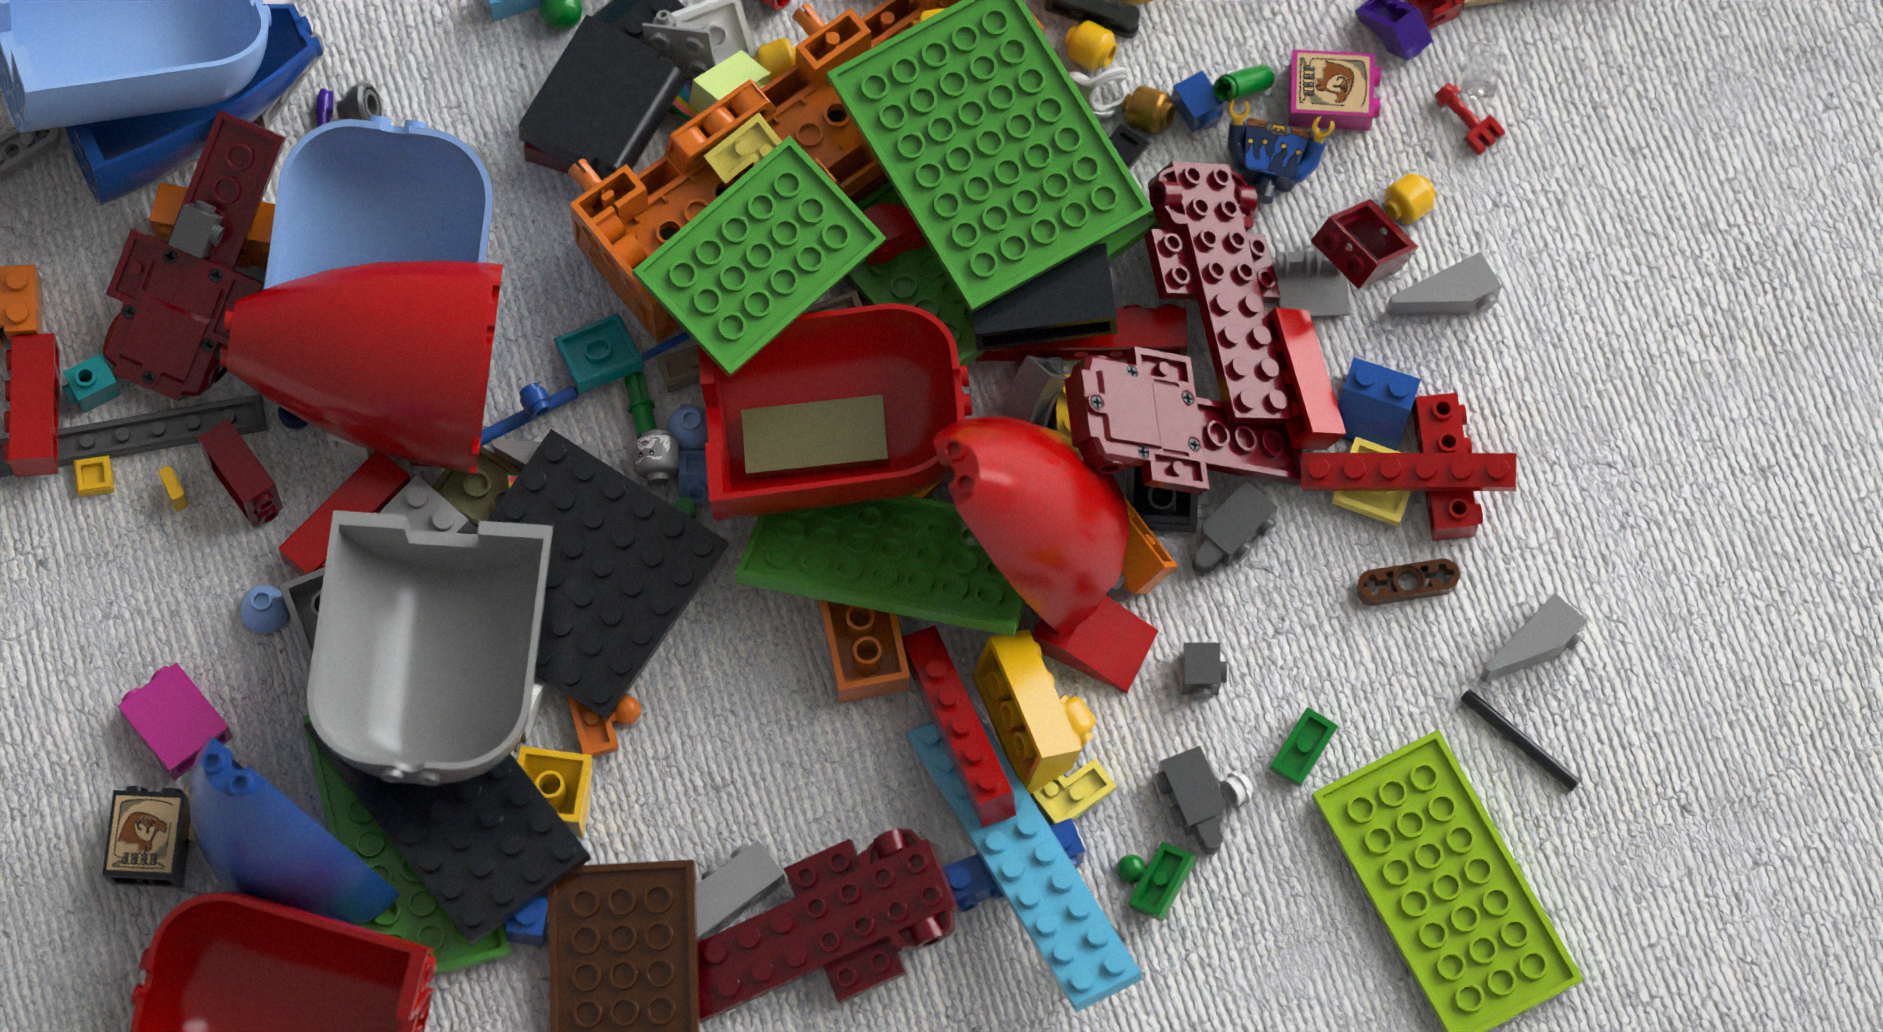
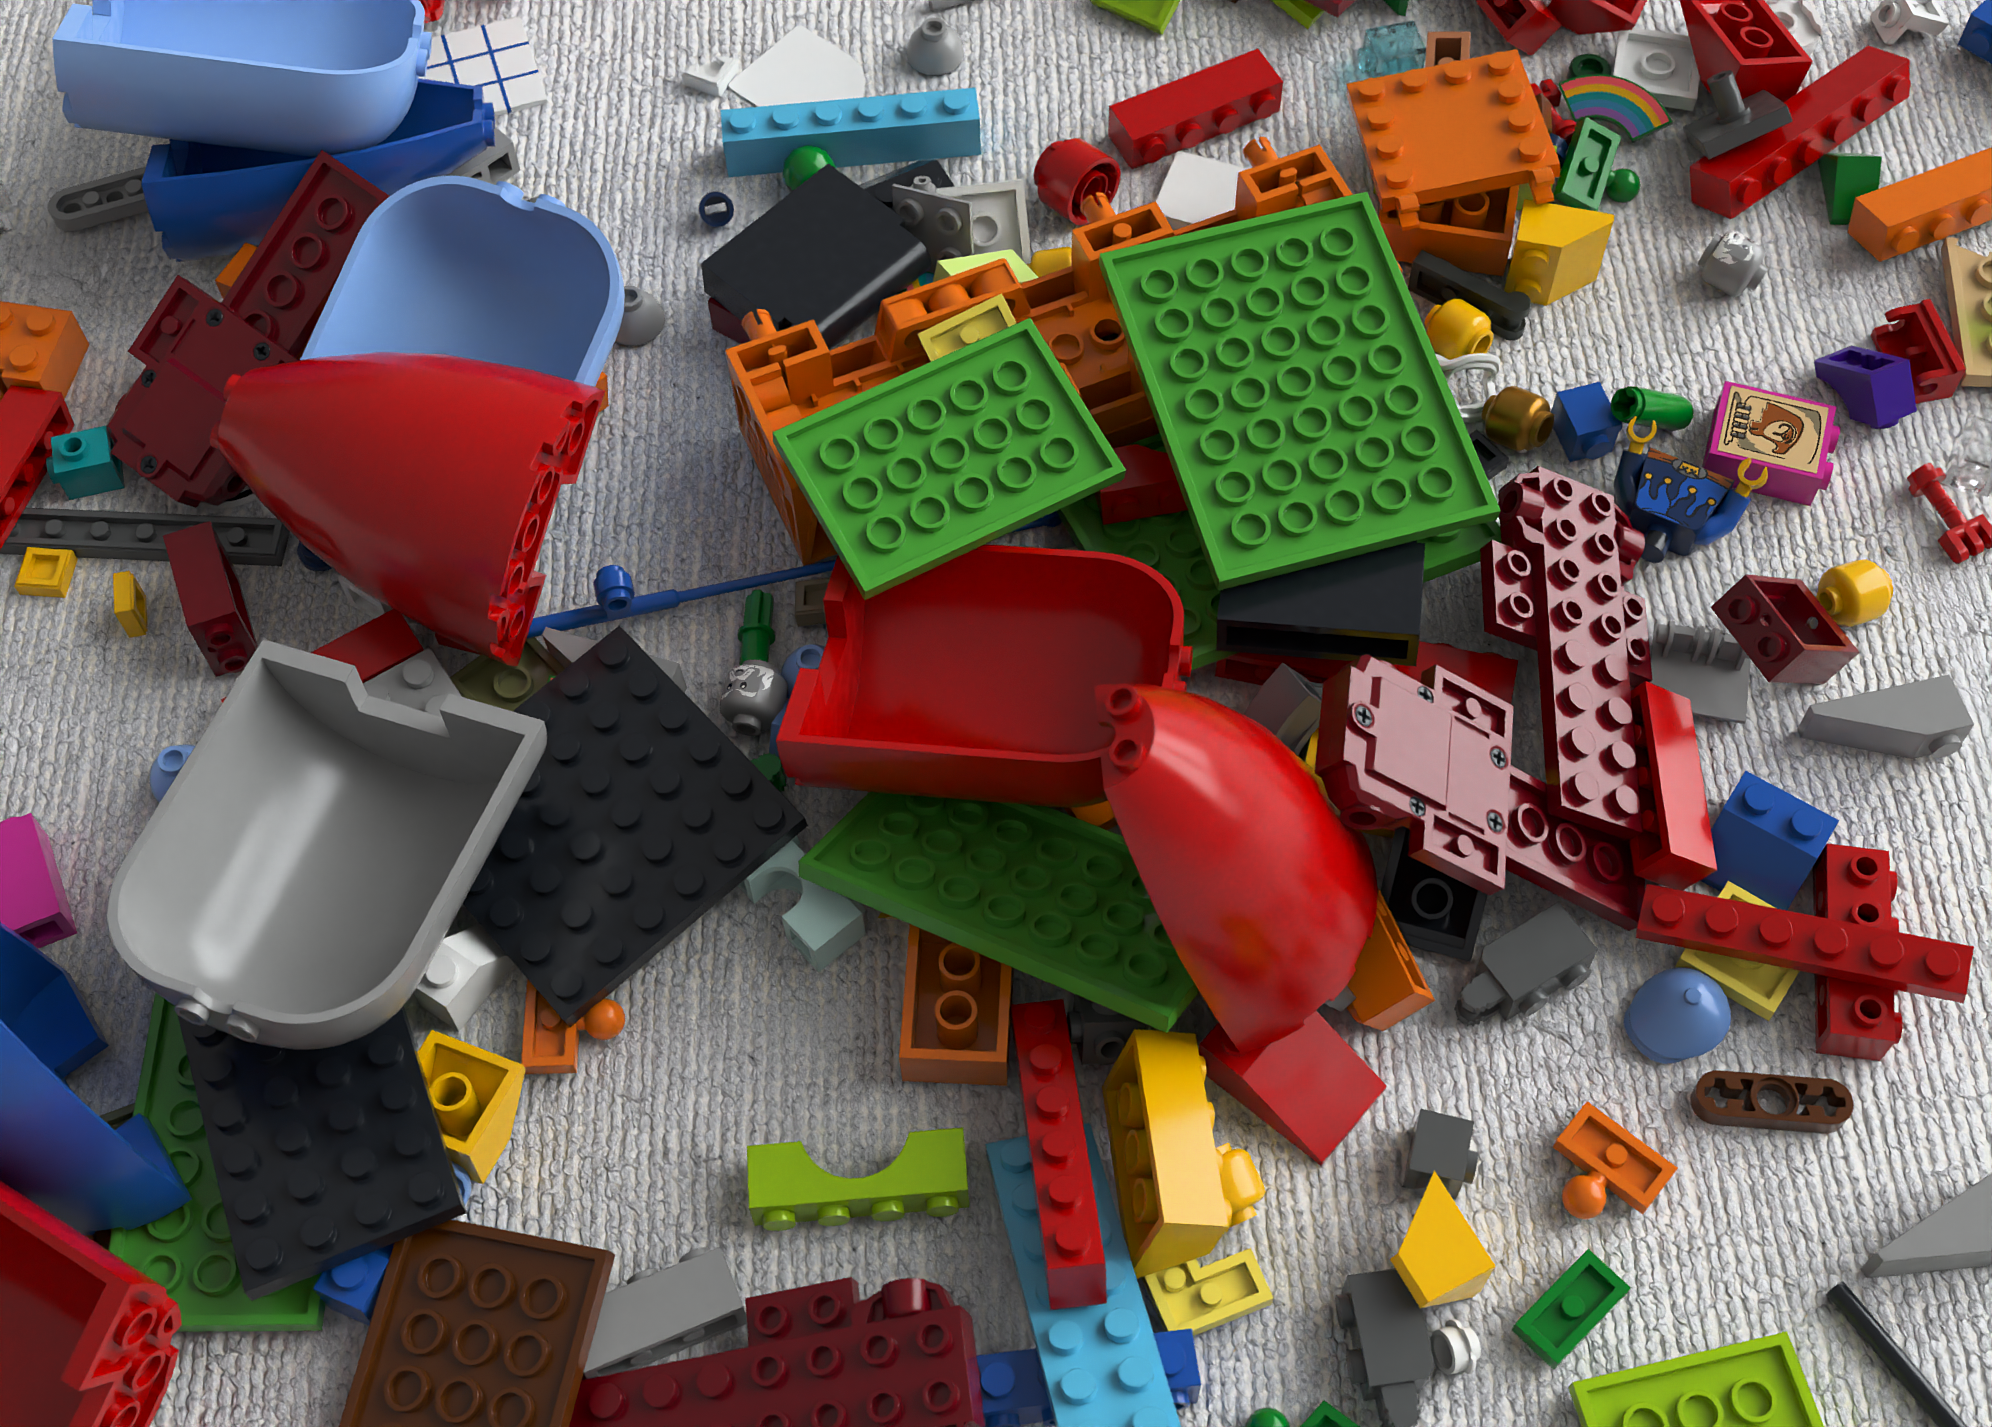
camera: 20 degrees right, 10 degrees down
(197, 229) = (252, 287): dark grey brick -> none
(499, 62) = (717, 218): none -> dark blue hinge
(599, 353) = (722, 559): teal tile -> none
(754, 608) = (822, 920): none -> light aqua arch
(789, 791) = (793, 1189): none -> lime arch
(814, 436) = (969, 708): olive tile -> none
(963, 642) = (1099, 1031): none -> dark grey brick
(1215, 732) = (1441, 1252): none -> yellow slope
(1313, 646) = (1612, 1161): none -> orange plate
(1338, 538) = (1678, 1015): none -> medium blue hat

